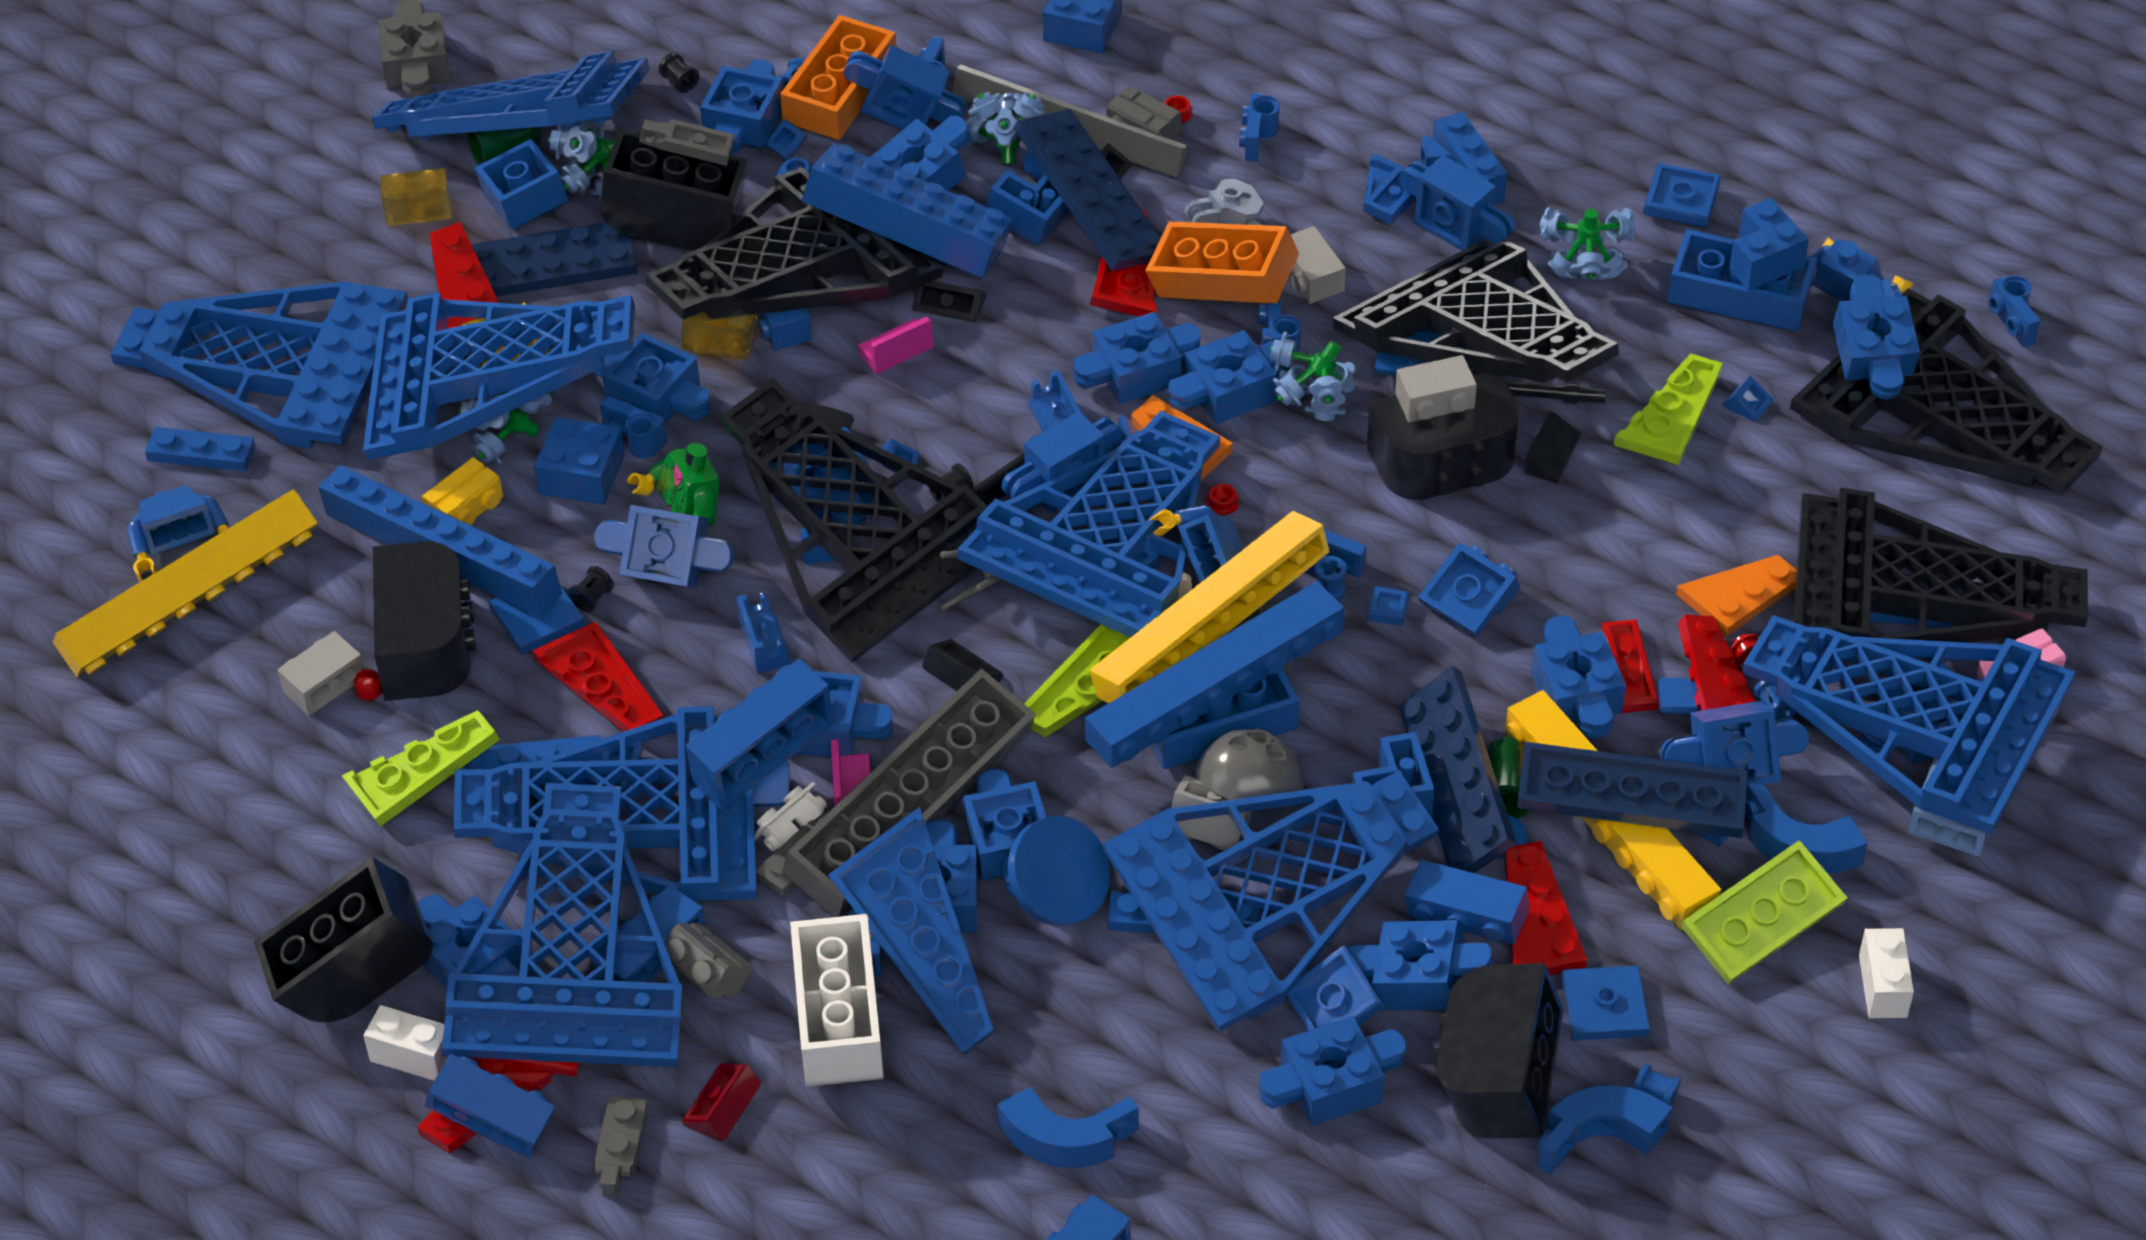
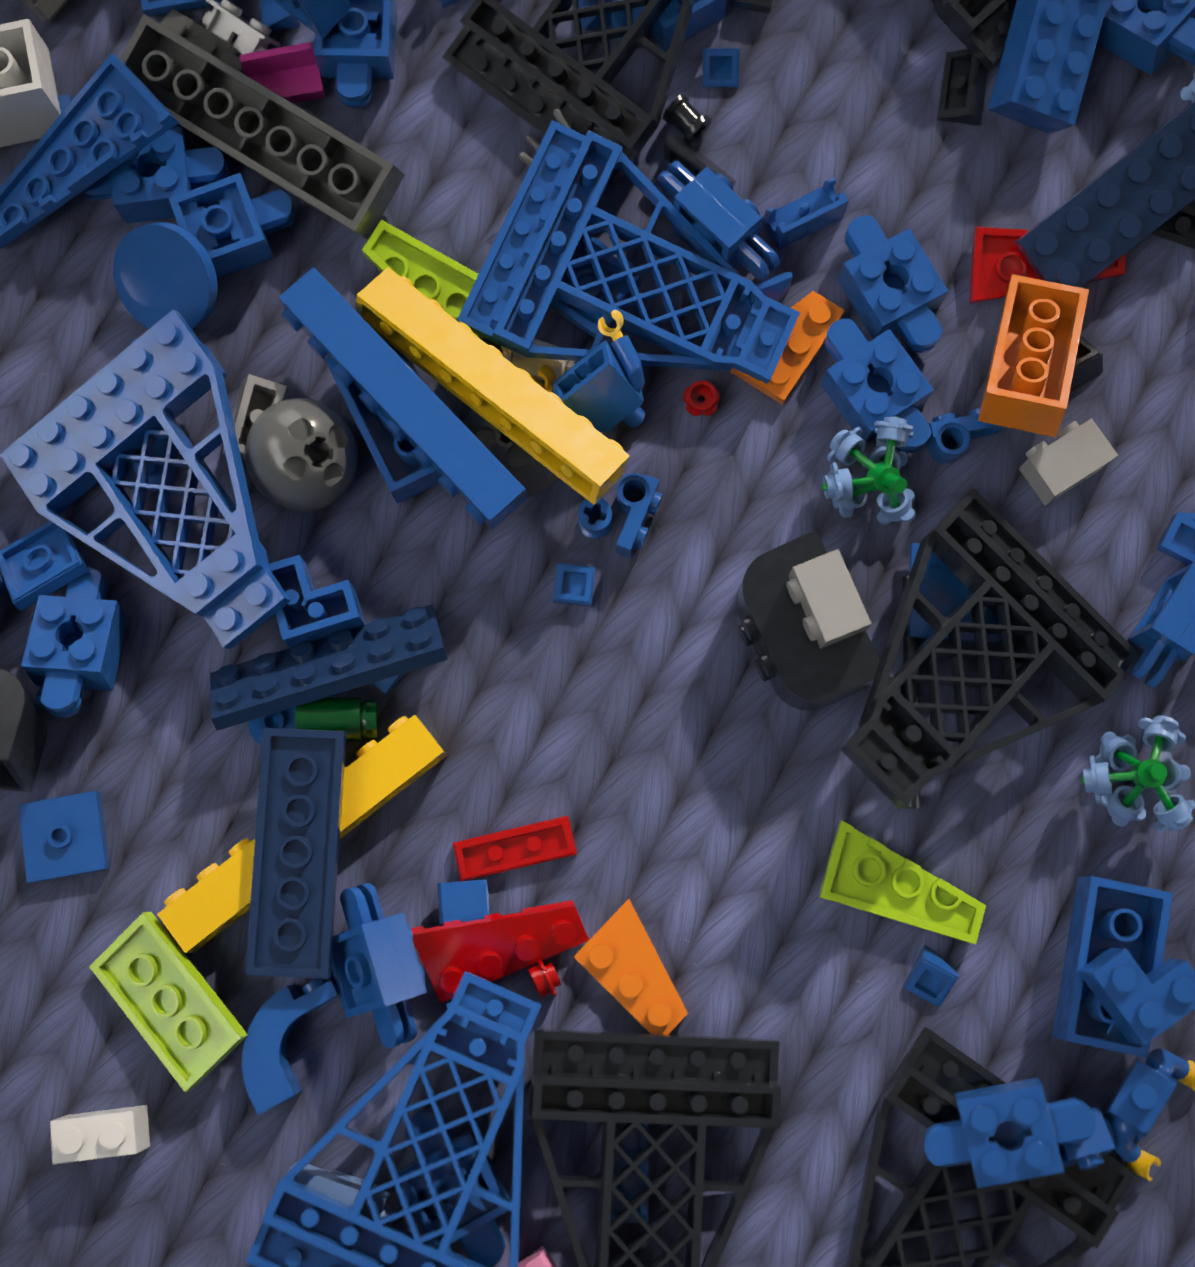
camera: 85 degrees right, 30 degrees up
(897, 344) = (885, 40): dark pink panel -> none
(955, 664) = (448, 166): black slope -> none
(1033, 207) = (1099, 135): blue brick -> none
(1226, 205) = (1134, 360): sand blue hinge -> none
(1470, 589) = (594, 668): blue plate -> none
(1474, 900) = (161, 687): blue brick -> none
(1548, 929) = (163, 765): red wing -> none
(1551, 448) = (817, 751): black slope -> none
(1579, 675) = (476, 790): blue brick -> none

